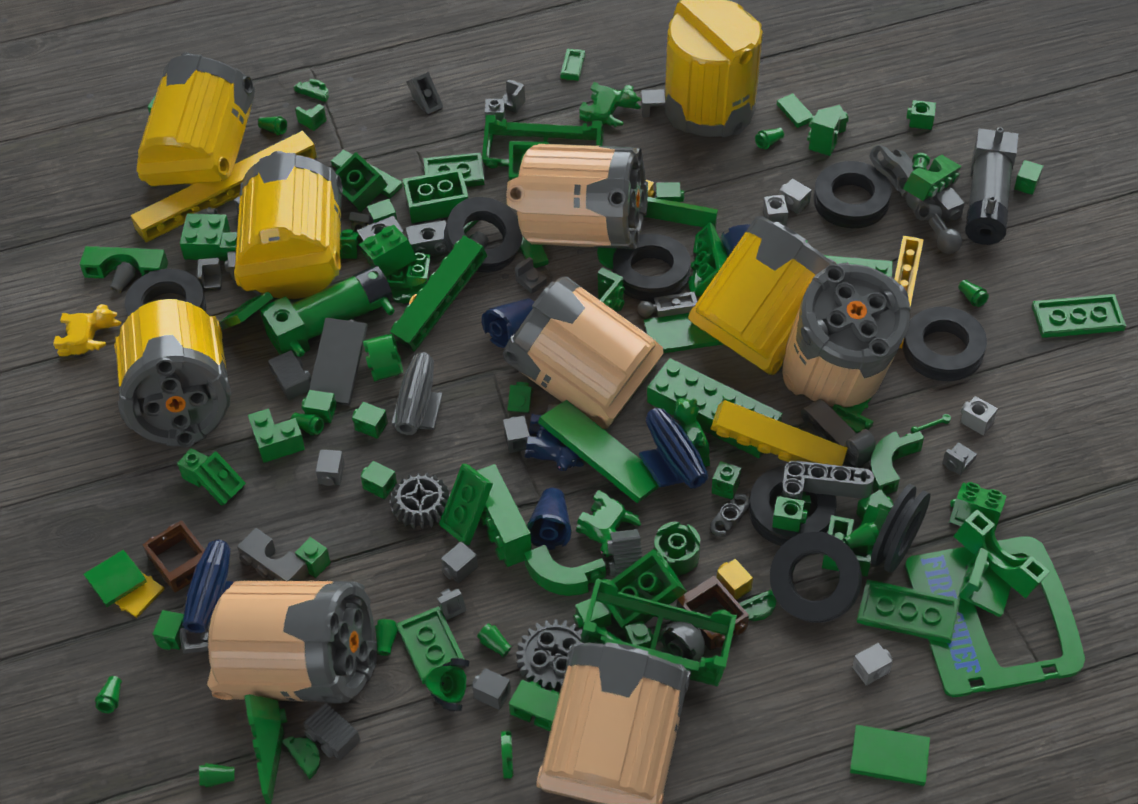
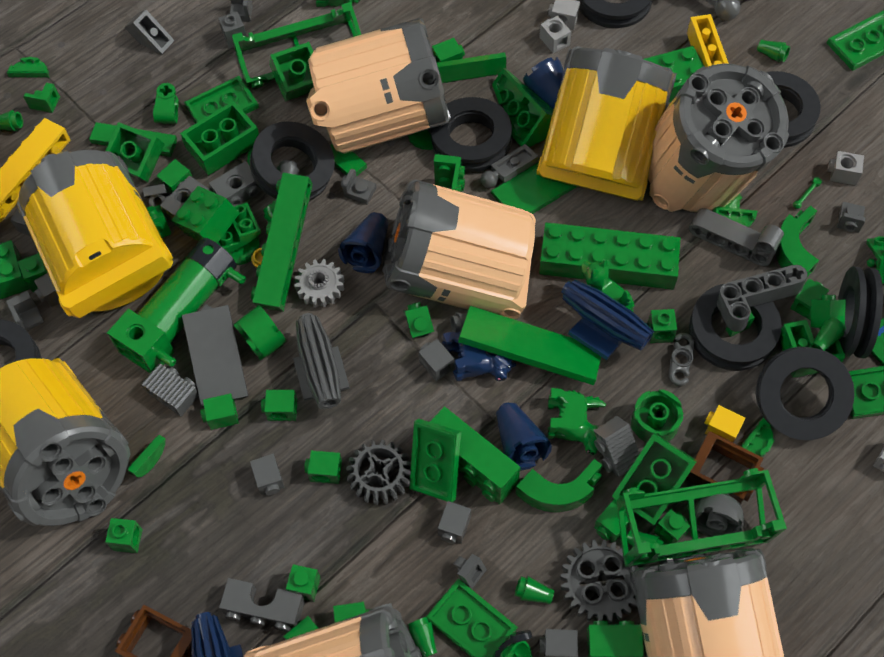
camera: 25 degrees left, 10 degrees up
(218, 478) = (157, 538): green plate -> none
(240, 421) = (148, 457): none -> green tile
(245, 310) = (89, 339): green tile -> none
(277, 439) = (191, 469): green brick -> none
(309, 423) = (218, 434): green cone -> none
(406, 155) = (166, 105): none -> green piece
(454, 339) = (323, 293): none -> light grey gear
(774, 436) = (692, 266): yellow brick -> none
(789, 506) = (740, 346): green brick -> none

